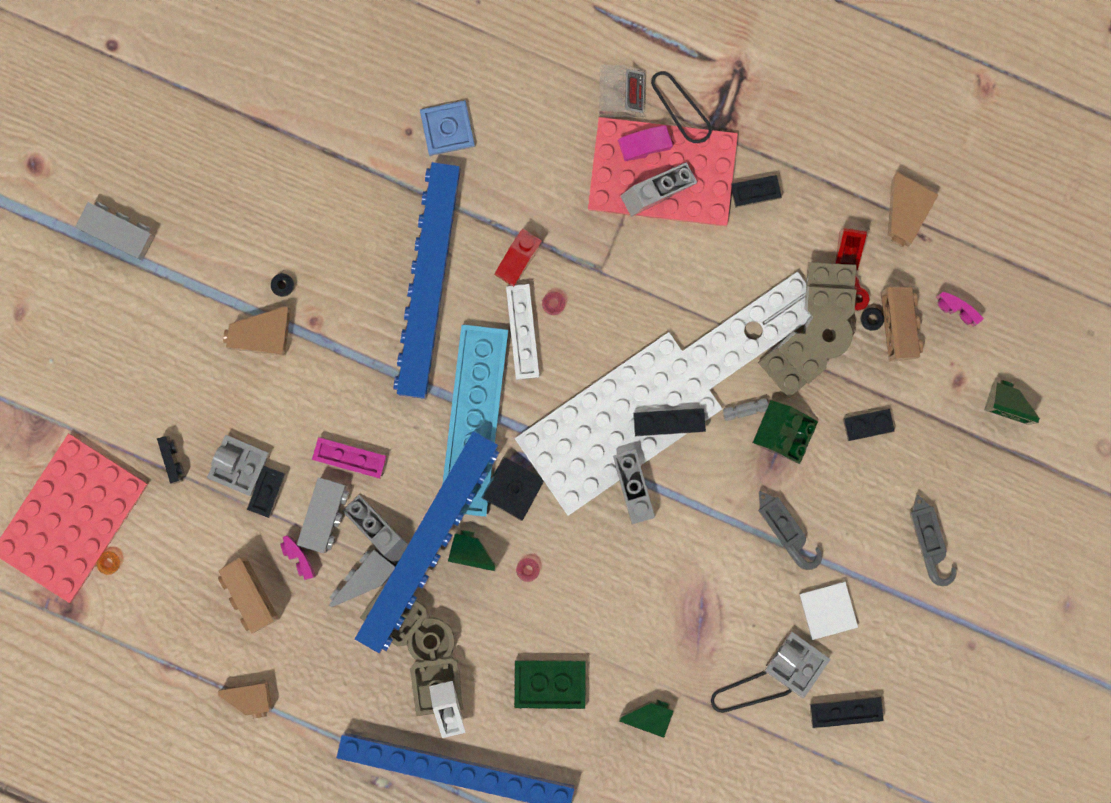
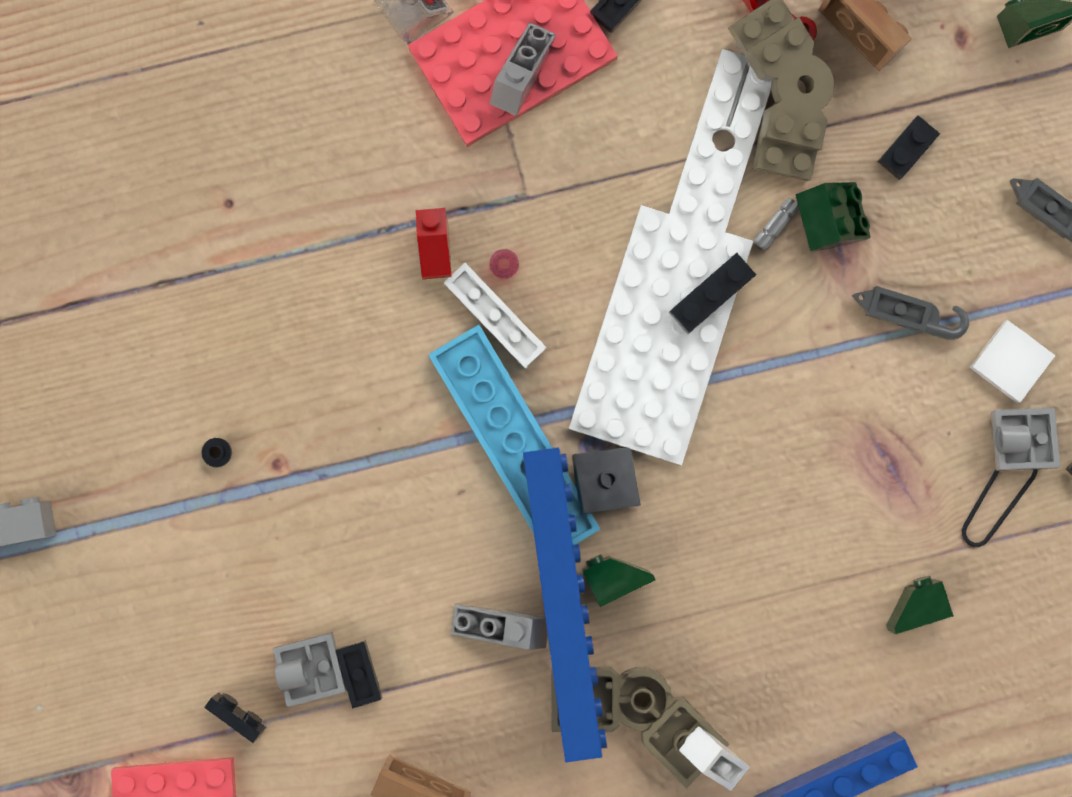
camera: 35 degrees left, 0 degrees up
(261, 333) = (230, 518): medium nougat slope -> none
(292, 550) = (431, 712): dark pink slope -> none
(323, 515) = (435, 655): light grey brick -> none
(349, 458) = (416, 575): dark pink plate -> none
(369, 576) = (529, 681): light grey slope -> none
(428, 280) = (360, 335): blue brick -> none
(447, 128) = (264, 170): medium blue tile -> none
(520, 573) = (692, 550): clear pink plate -> none
(550, 684) = (794, 649): dark green plate -> none
(633, 487) = (727, 386): light grey slope -> none
(645, 142) = (473, 31): dark pink slope -> none
(878, 315) = (831, 32): black plate -> none

